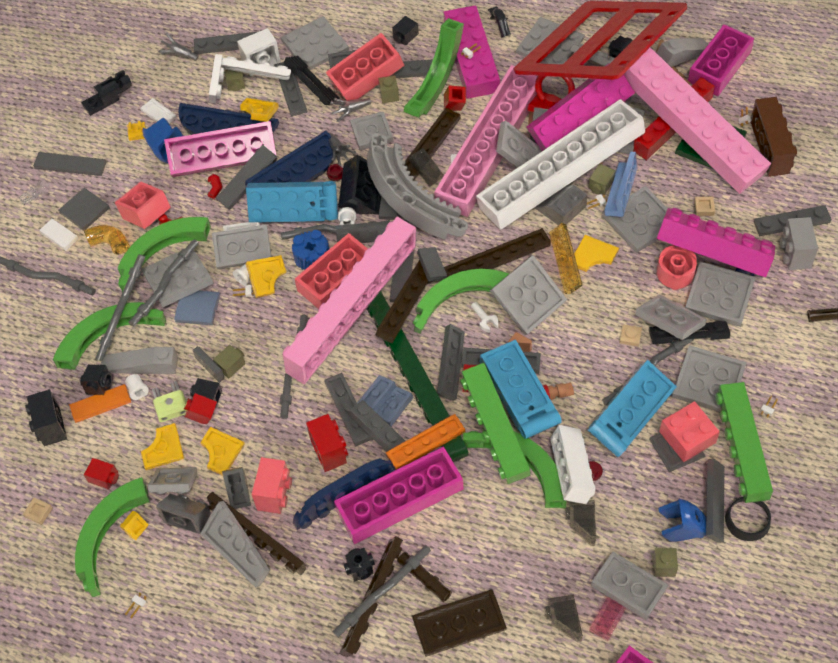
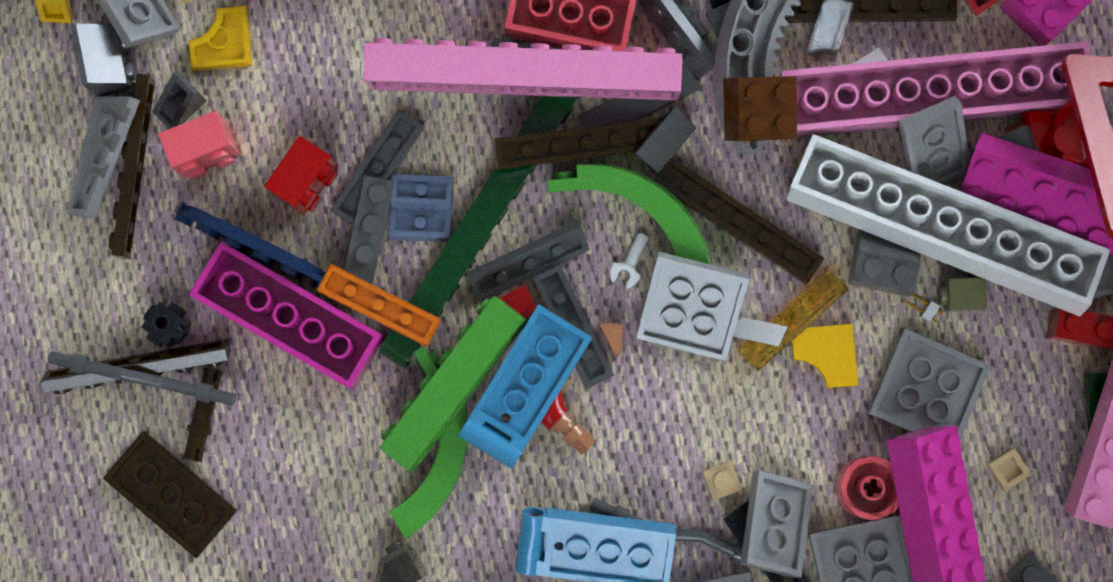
camera: 55 degrees right, 25 degrees up
(286, 398) = (455, 31): dark grey bar -> none
(447, 206) = (760, 108): none -> reddish brown brick
(563, 273) = (759, 331): none -> white sticker
(572, 464) = (459, 518): white brick -> none
(596, 470) = (478, 544): dark red plate -> none
(621, 187) = (964, 332): medium blue fence -> none

